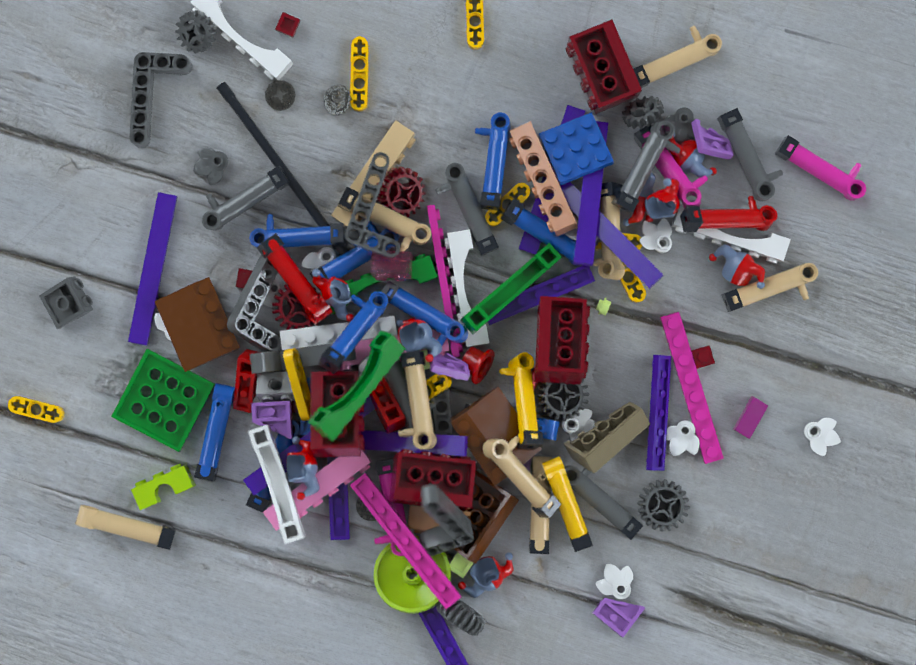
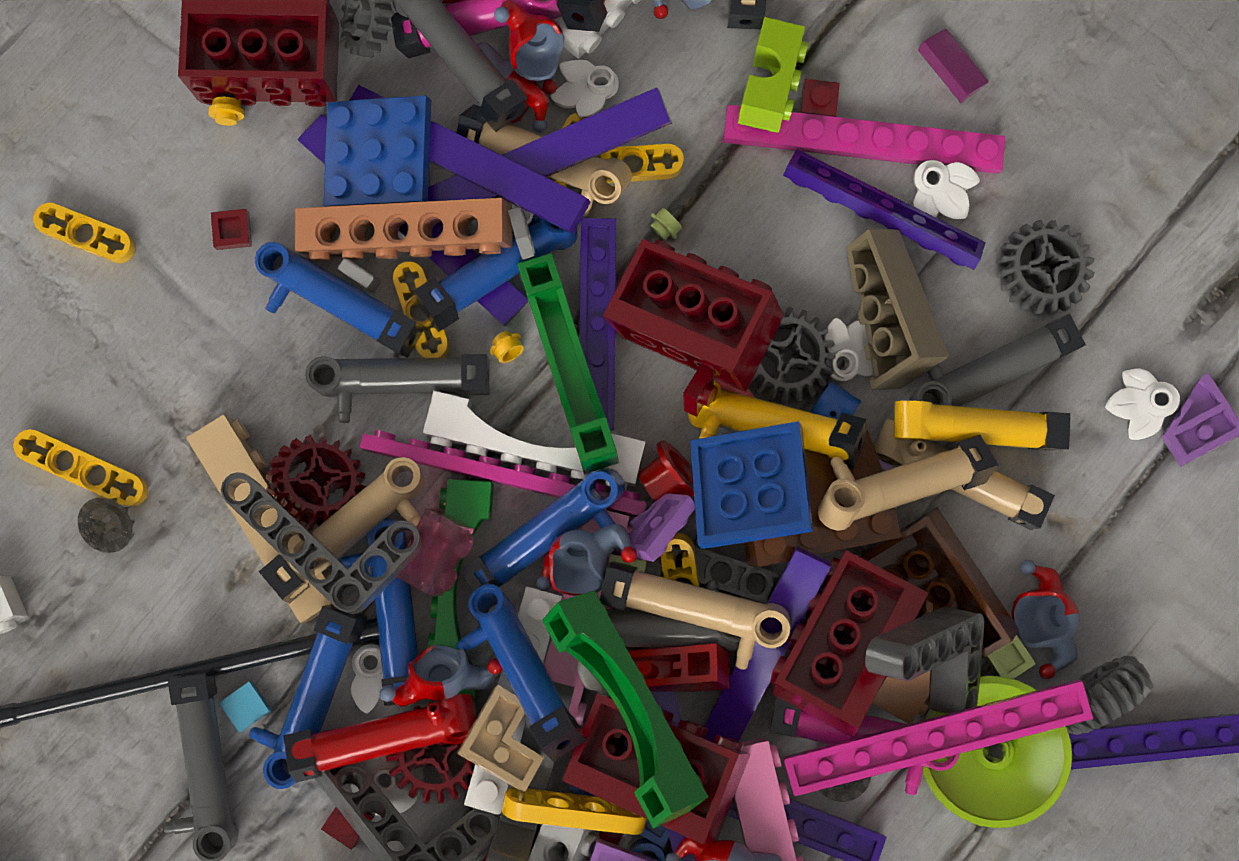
camera: 70 degrees left, 5 degrees down
(208, 166) = (113, 804): dark grey plate -> none
(280, 206) = (245, 706): none -> medium azure tile
(288, 98) = (60, 637): clear smoke gear -> none
(312, 332) = (492, 745): none -> tan plate
(487, 402) = (751, 485): none -> blue plate
(507, 93) = (231, 229): none -> dark red plate
(508, 254) = (507, 346): none -> yellow plate
(512, 165) = (359, 275): none -> light grey tile
(523, 359) = (699, 391): none -> dark red plate
(565, 238) = (521, 232): none -> light grey tile
(566, 63) = (226, 111): none -> yellow plate
(686, 330) = (766, 98): none -> lime arch

